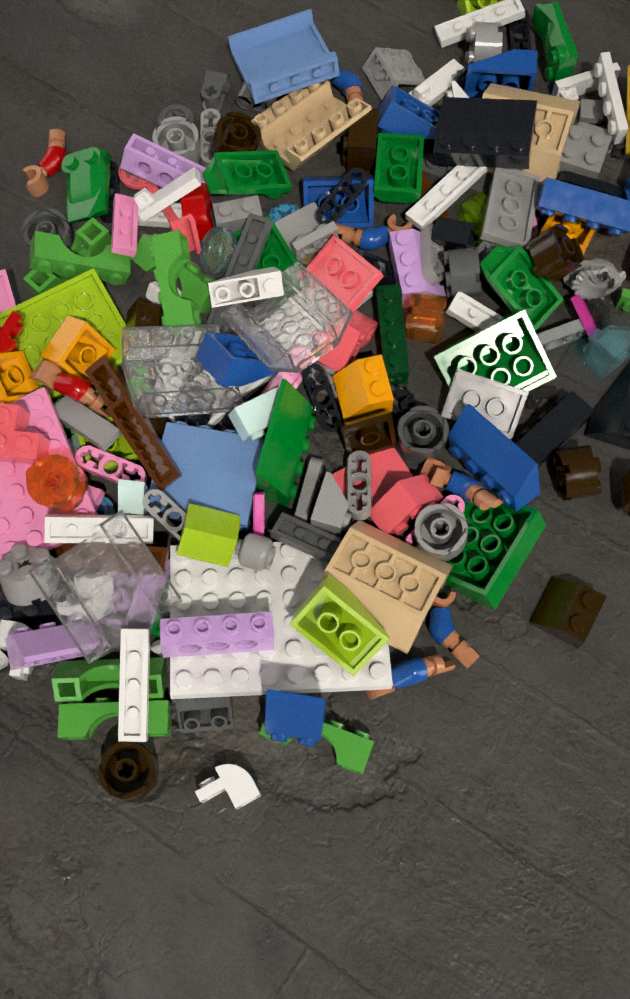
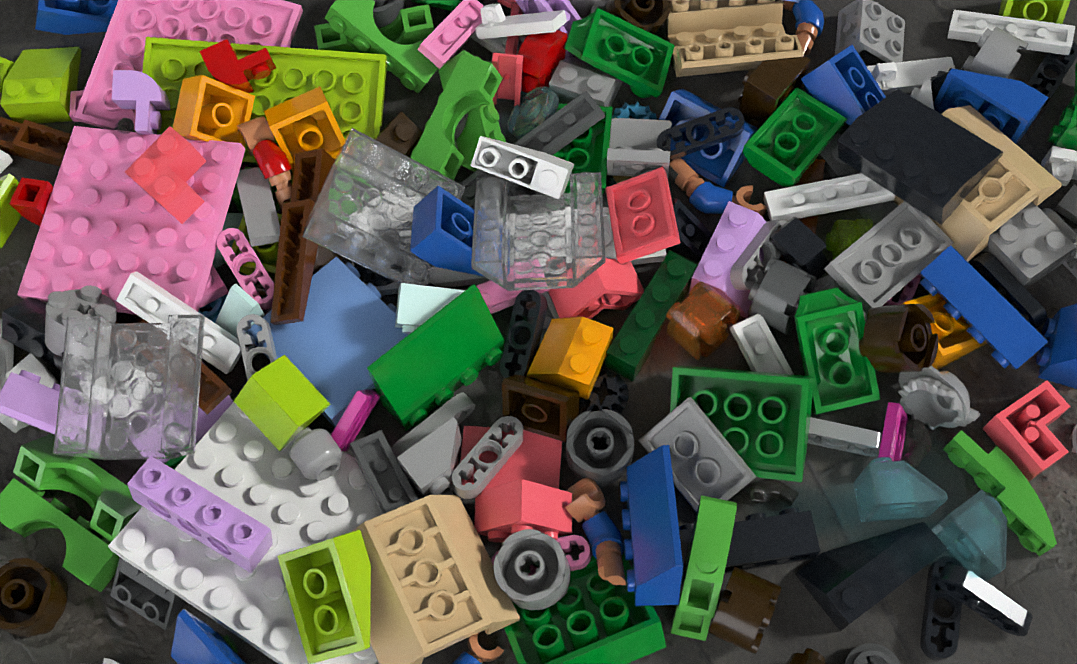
camera: 35 degrees right, 5 degrees down
(58, 471) = (171, 247): clear orange brick -> none
(134, 685) = (87, 509): white plate -> none
(536, 443) = (704, 567): none -> bright green slope

